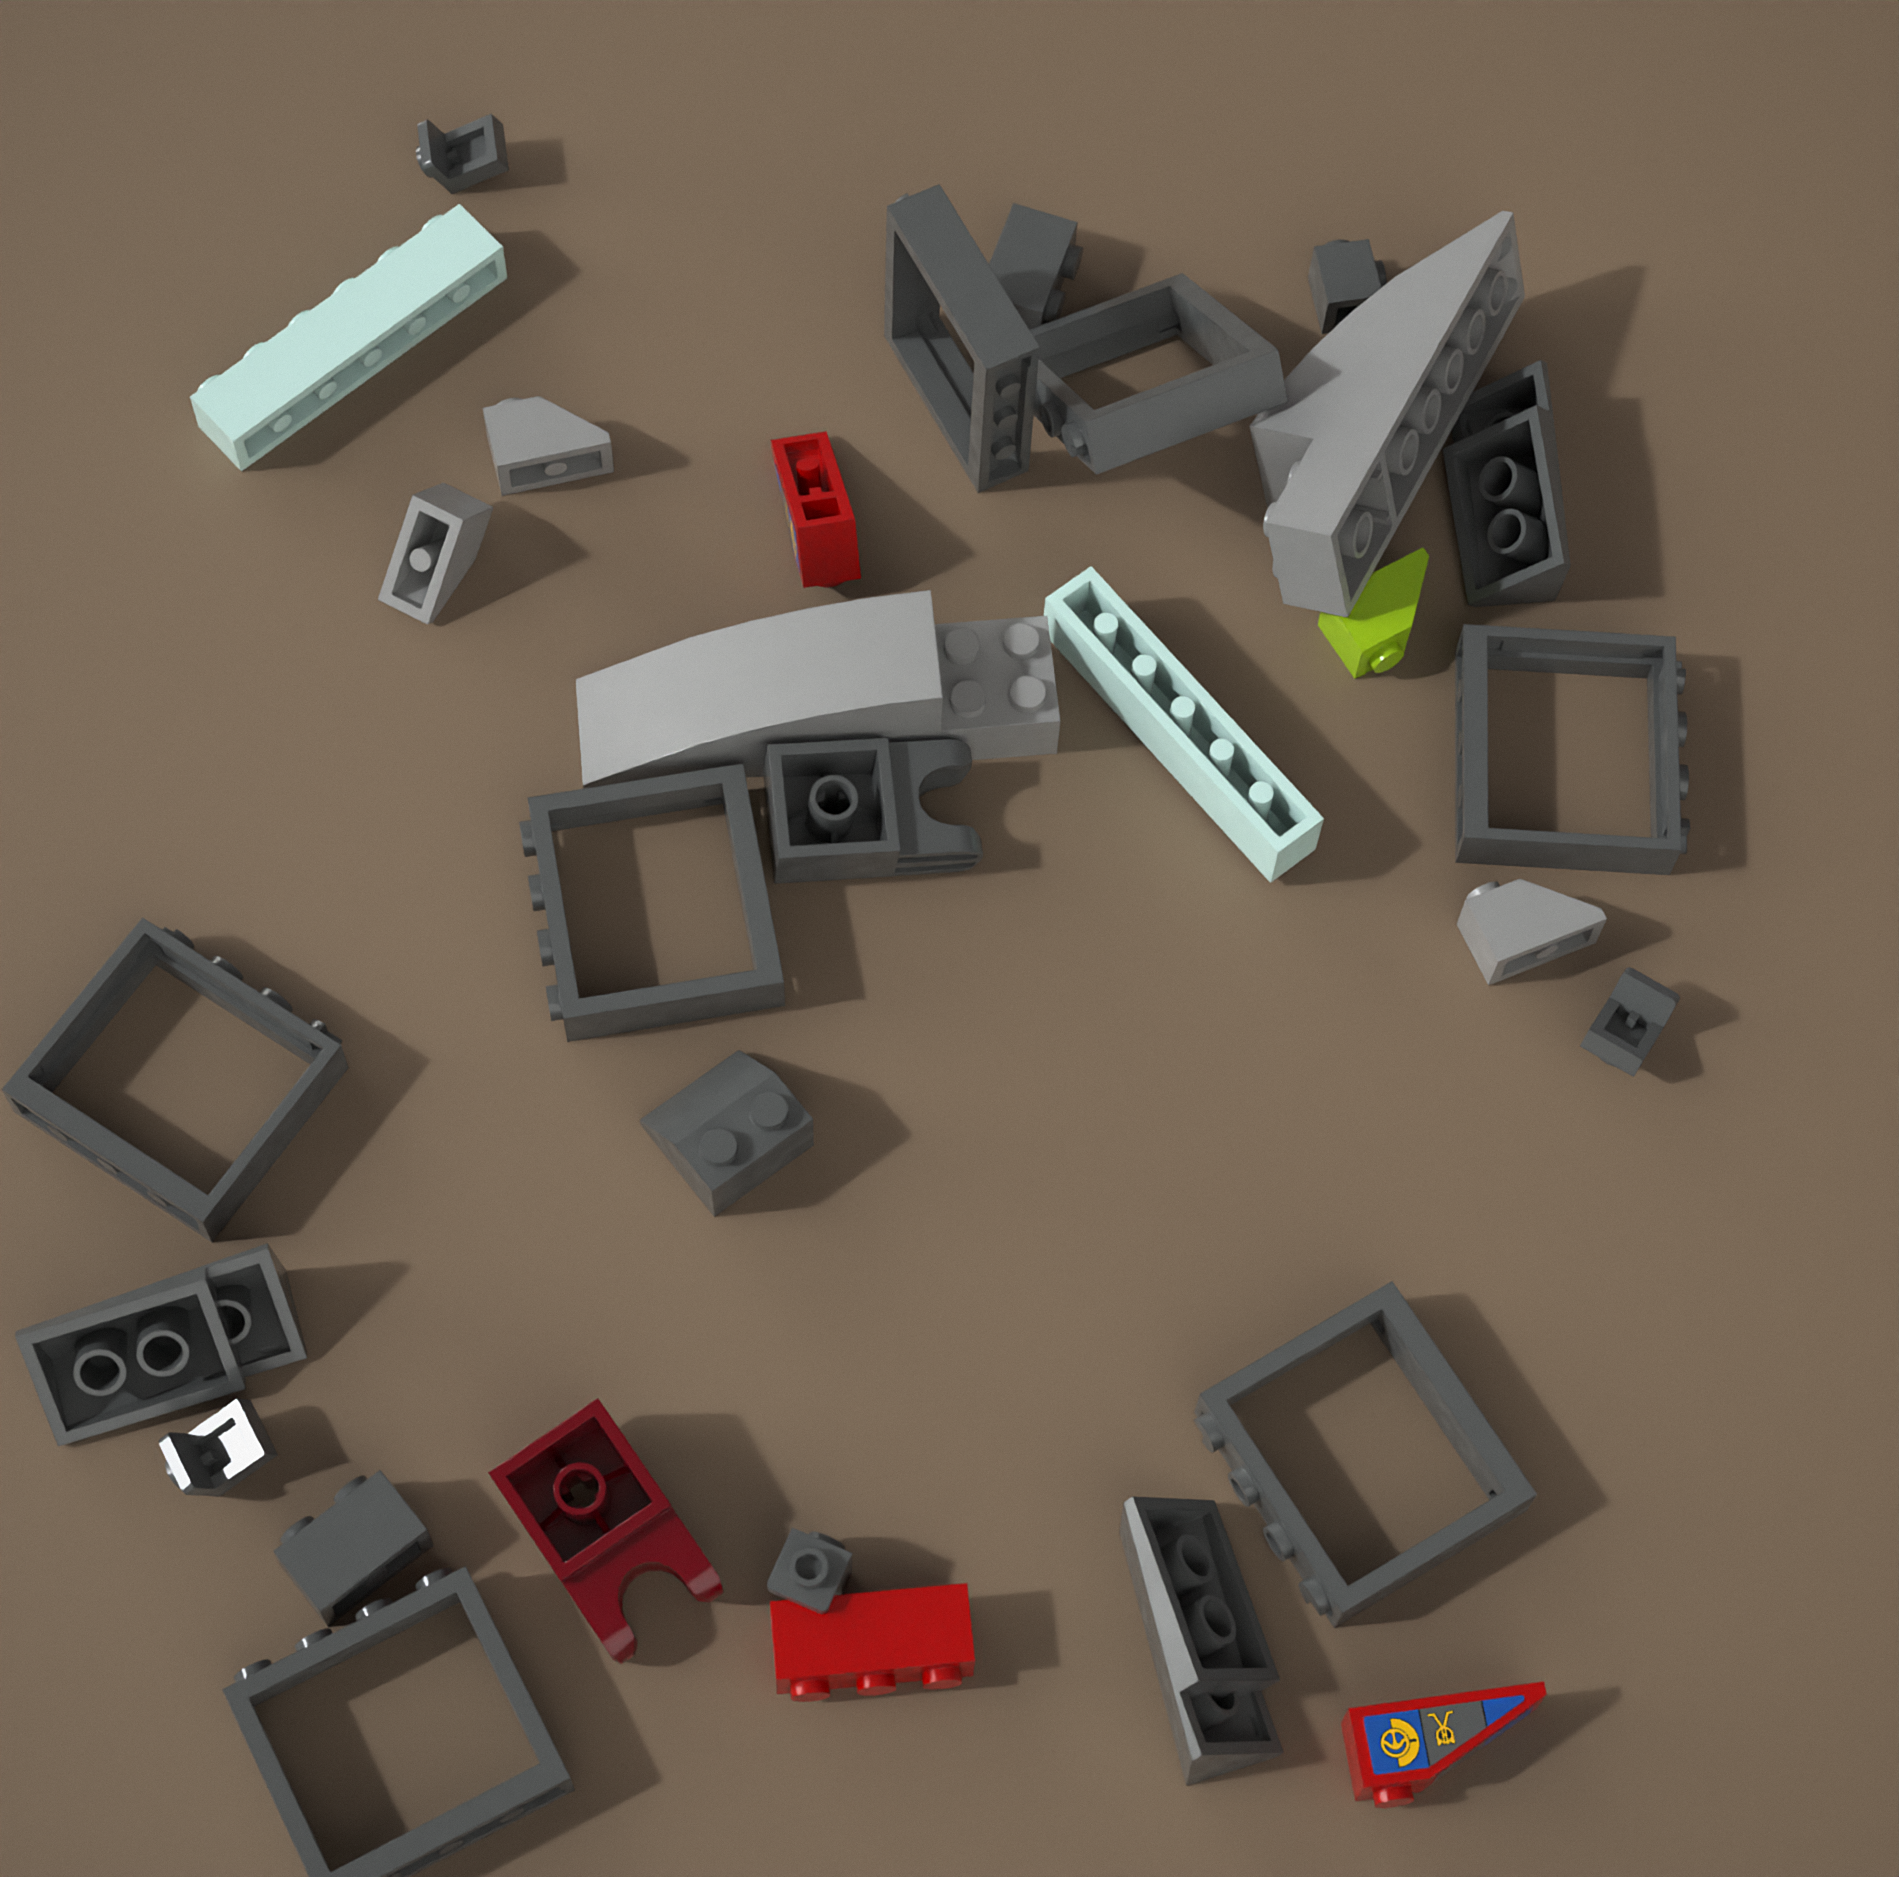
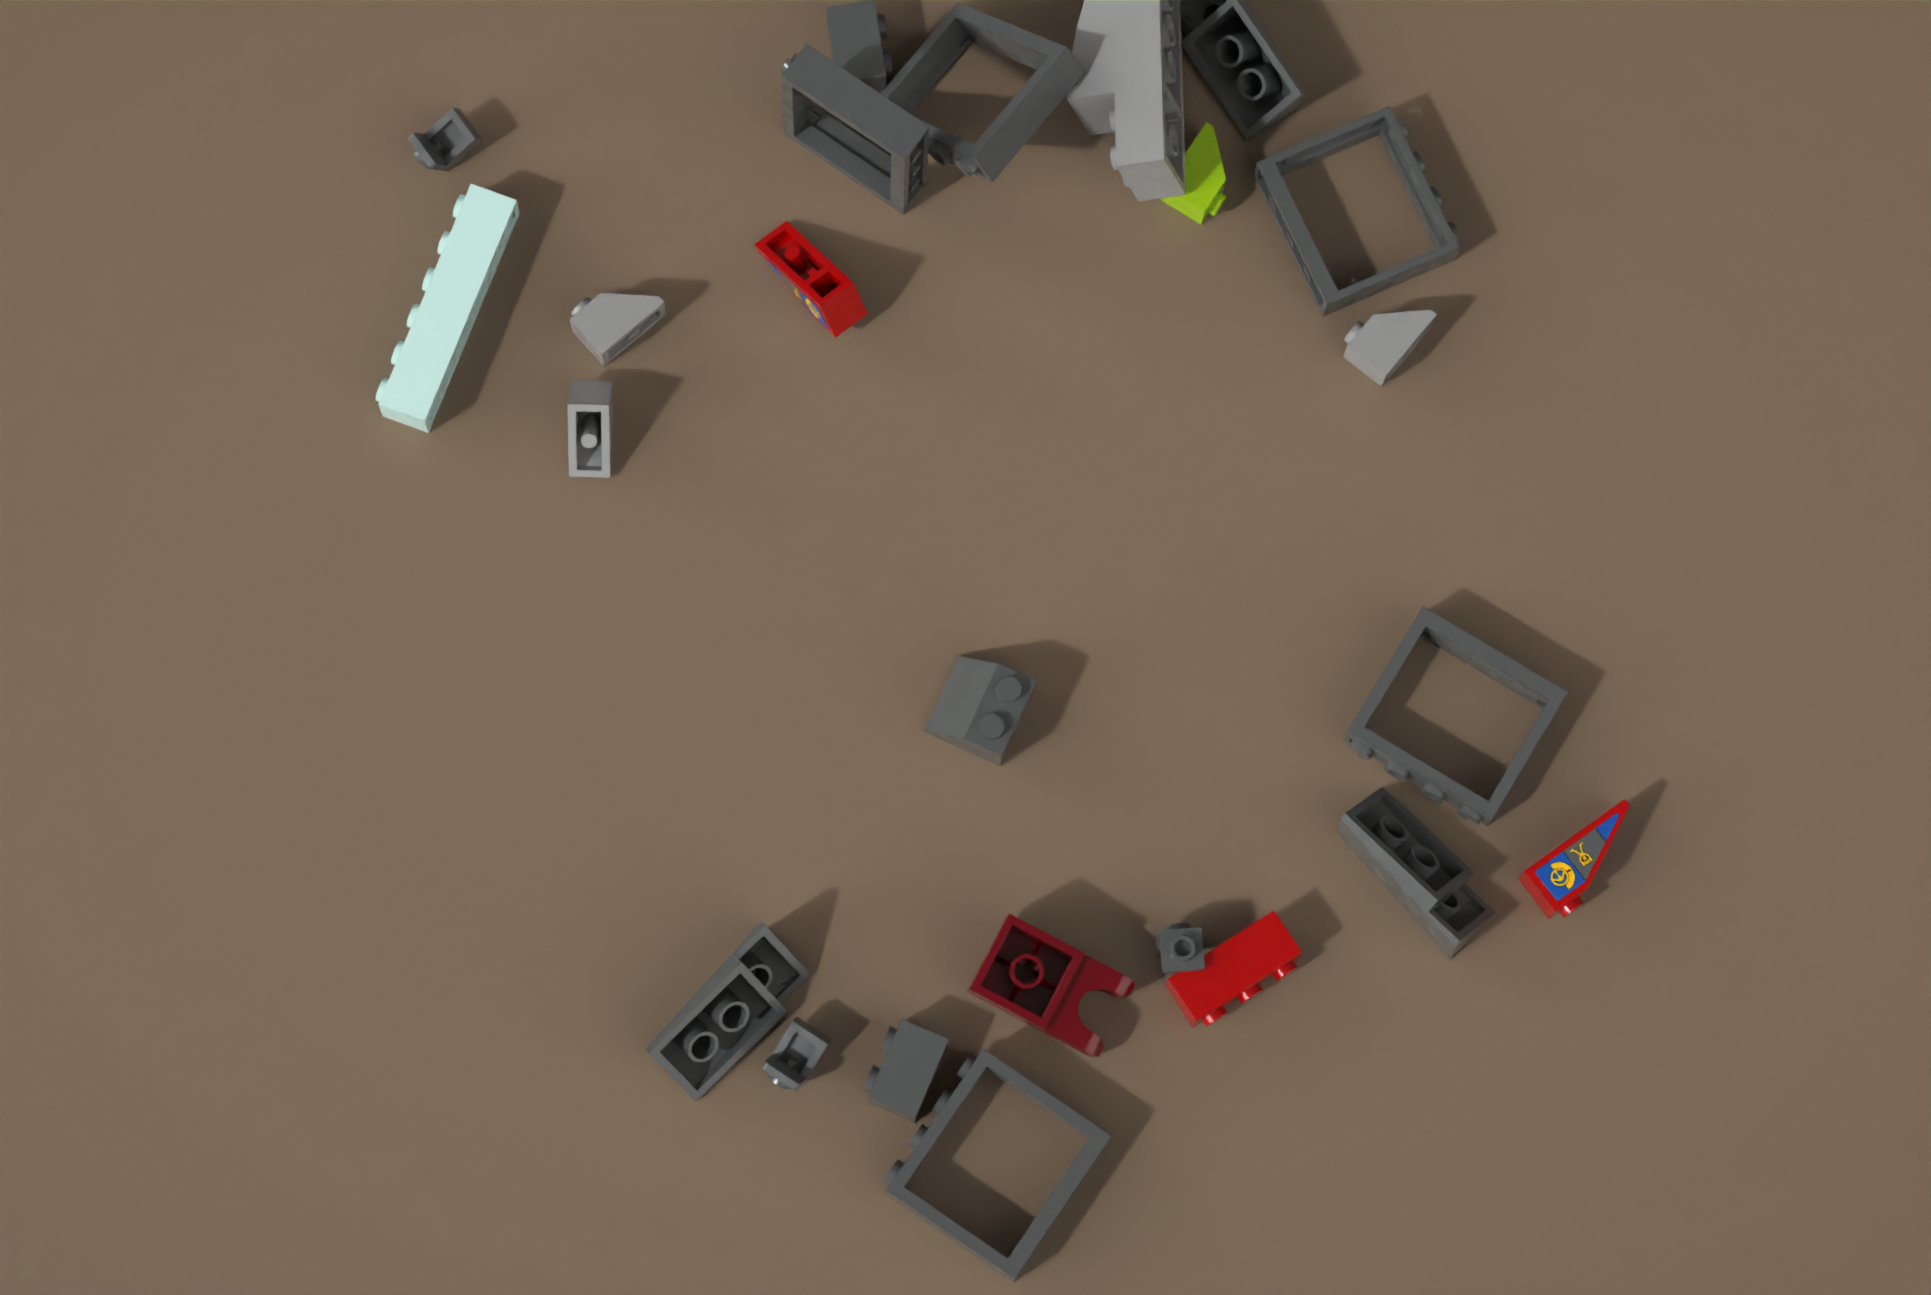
camera: 30 degrees left, 10 degrees up
(218, 980) = (627, 775): dark grey window -> none
(671, 1002) = (908, 545): dark grey window -> none
(818, 678) = (886, 408): light grey slope -> none
(876, 806) = (962, 459): dark grey brick -> none
(1182, 724) = (1116, 313): light aqua brick -> none
(1630, 1021) = (1479, 371): dark grey bracket -> none

